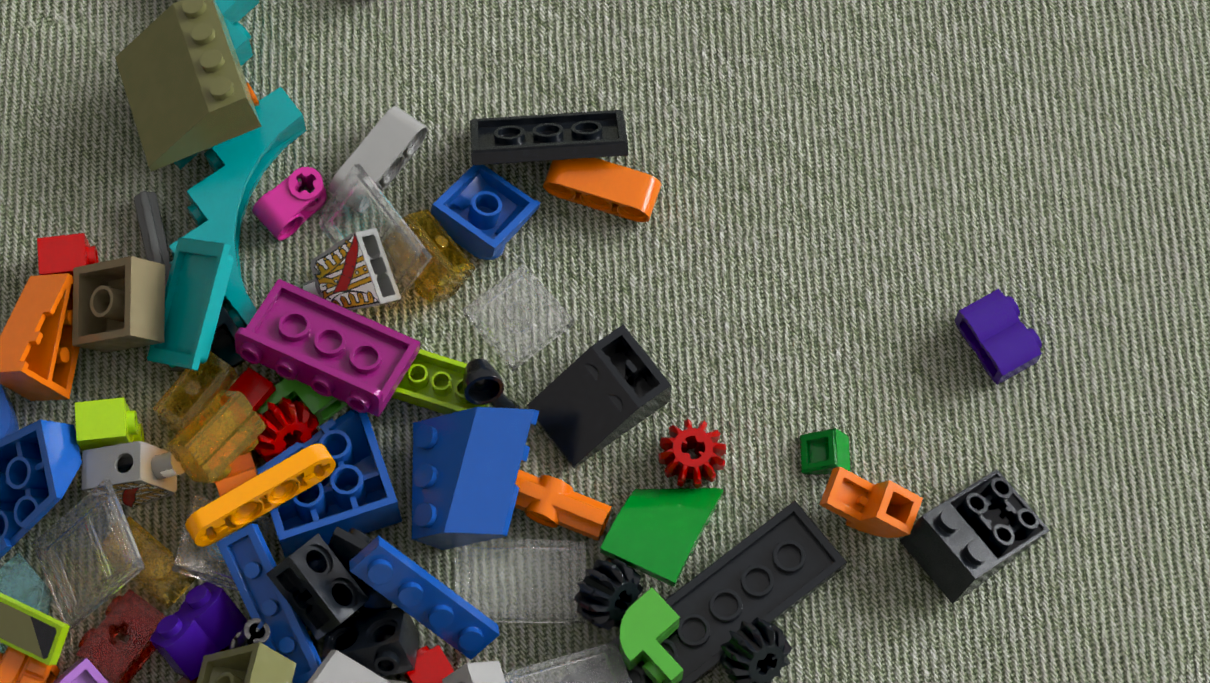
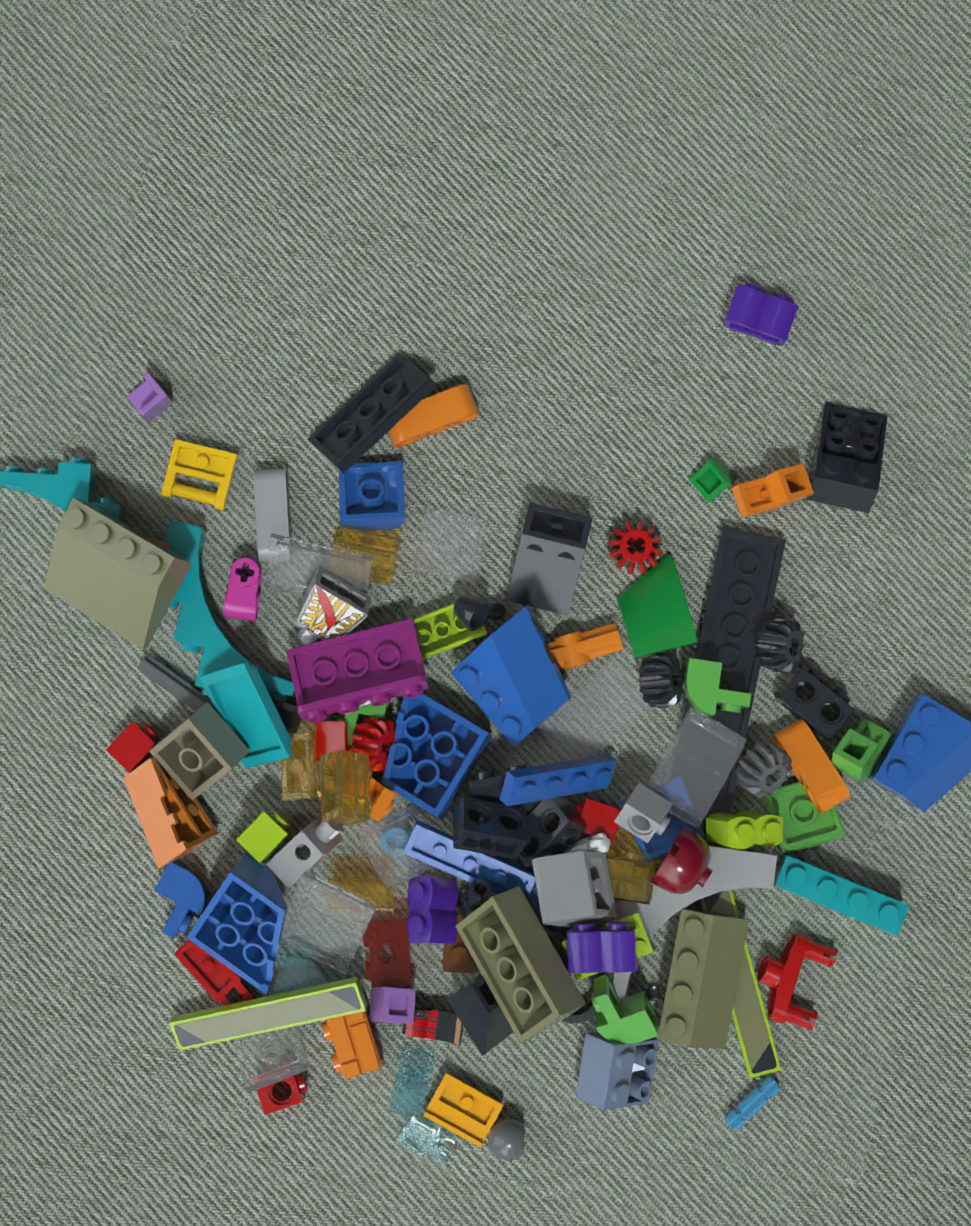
camera: 35 degrees left, 15 degrees up
(260, 495) = (403, 800): light orange beam -> none
(354, 66) = (202, 464): none -> yellow plate

